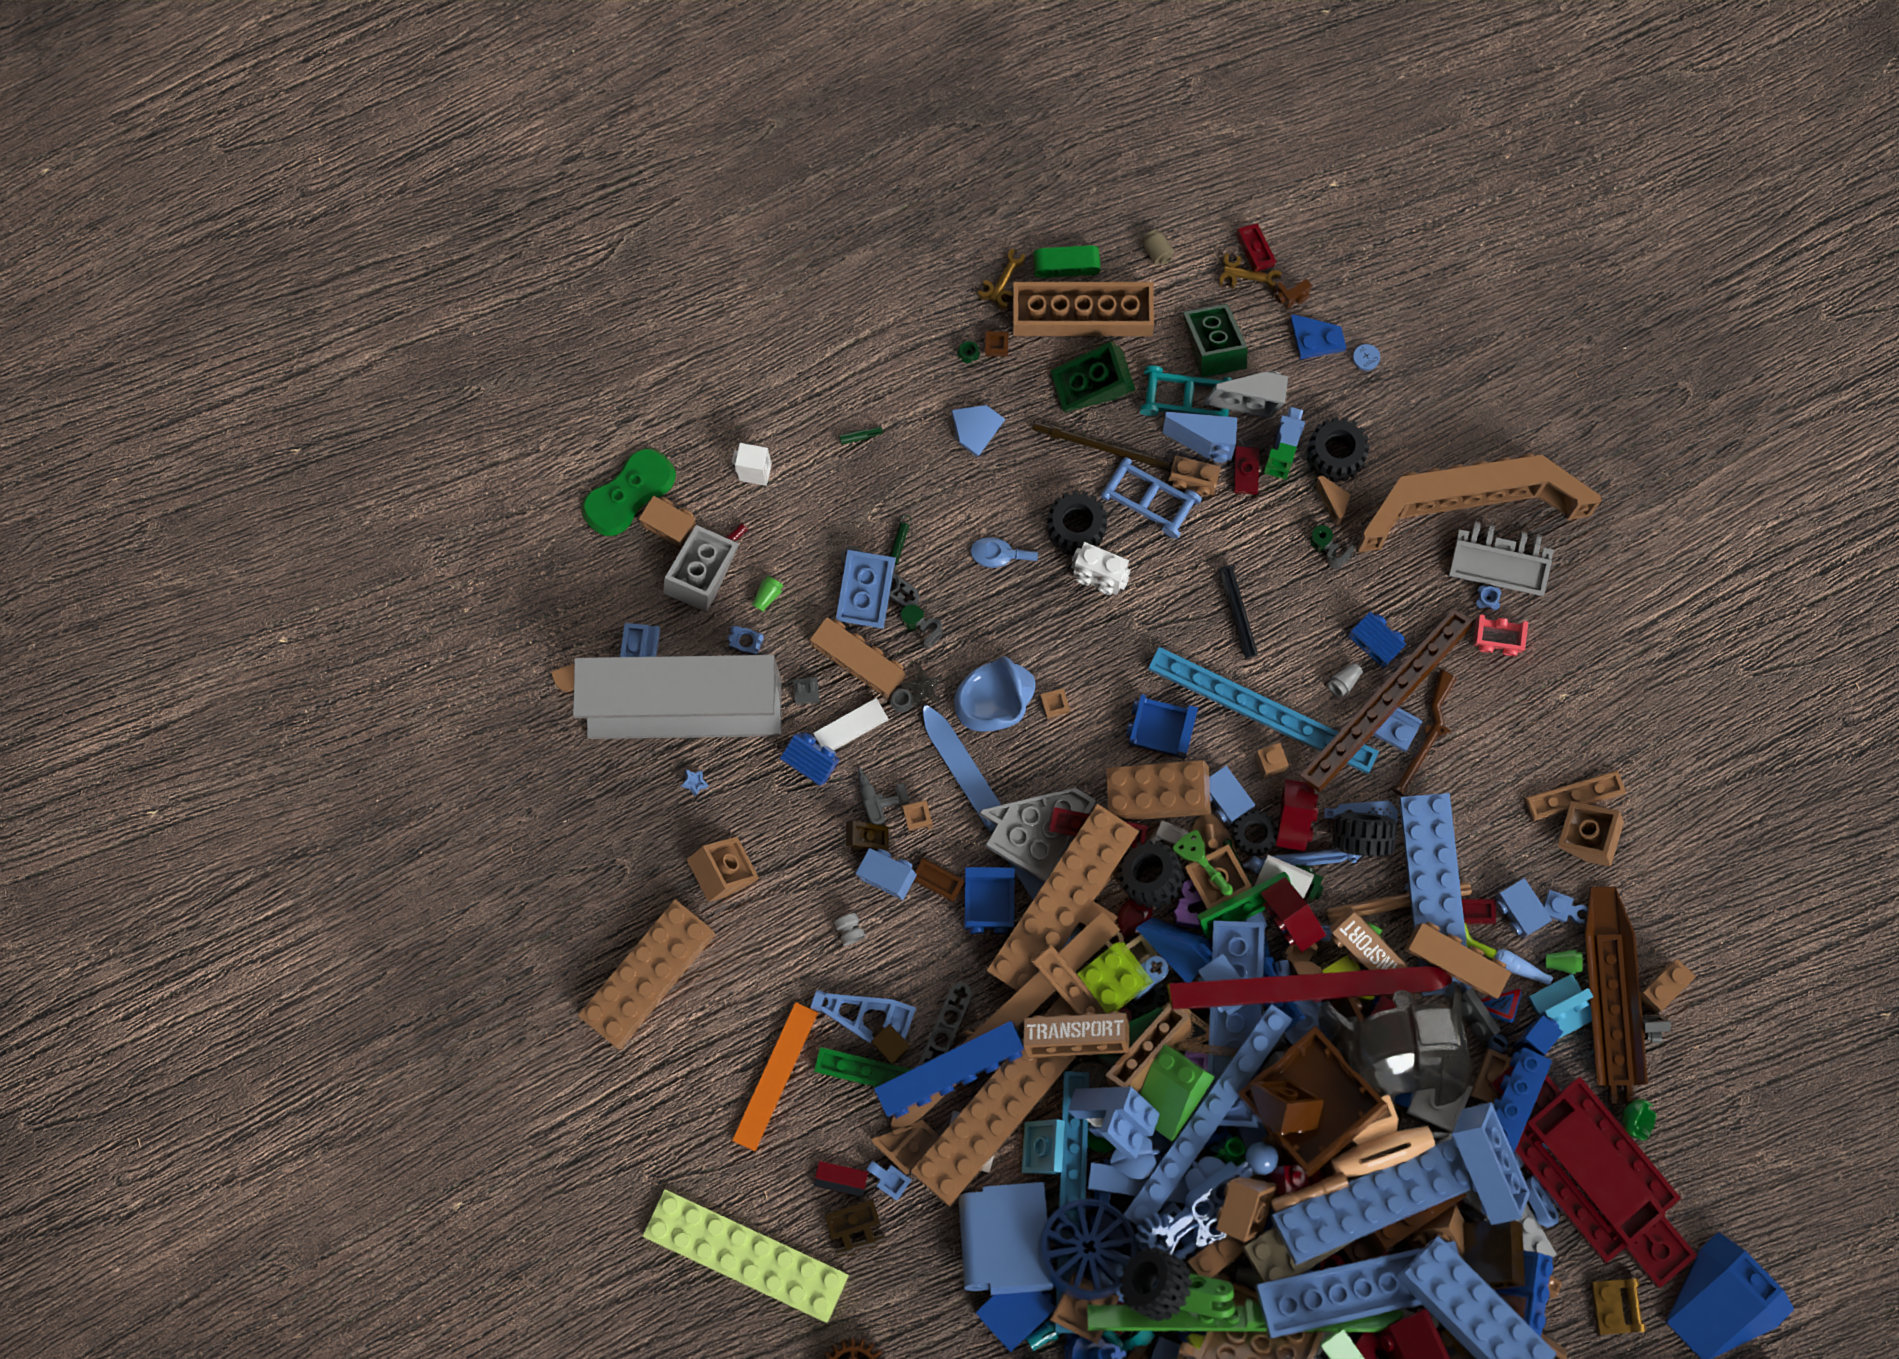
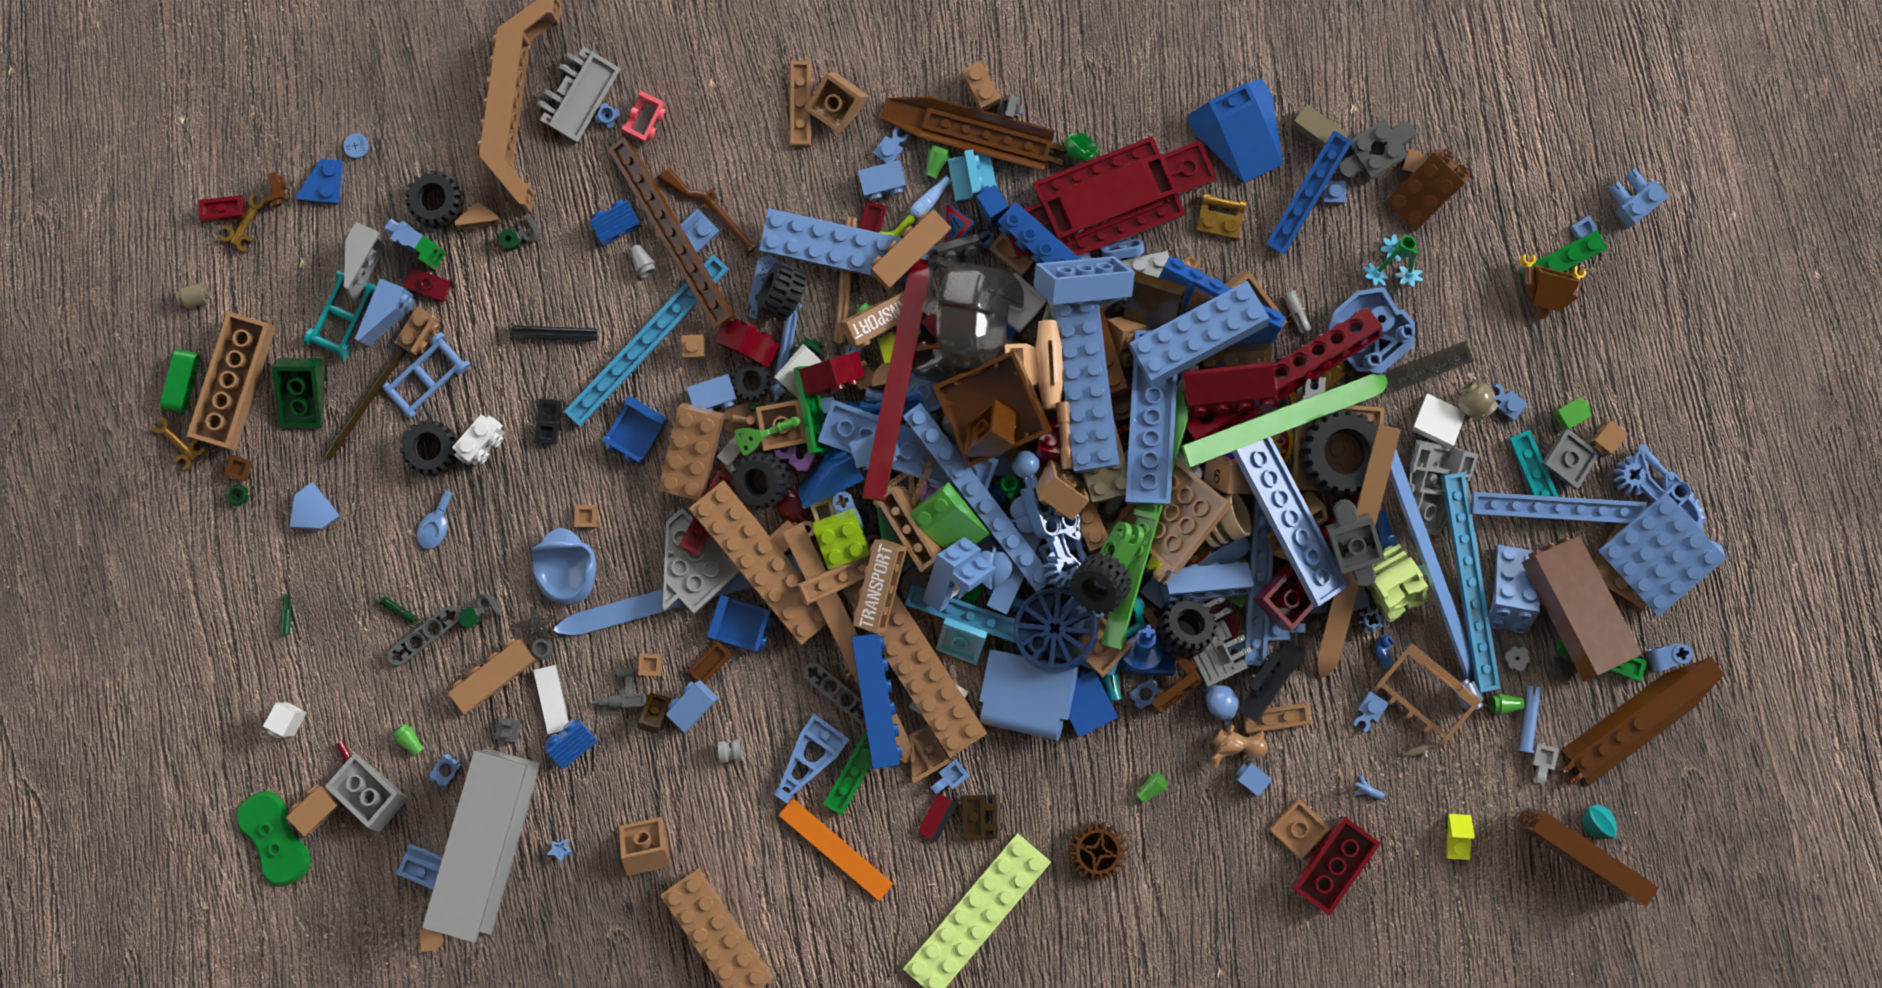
camera: 75 degrees left, 10 degrees up
(865, 589) = (432, 651): medium blue plate -> none
(889, 1043) = (838, 744): dark brown brick -> none
(1143, 635) = (548, 421): none -> black slope
(1216, 340) = (298, 272): dark green slope -> none

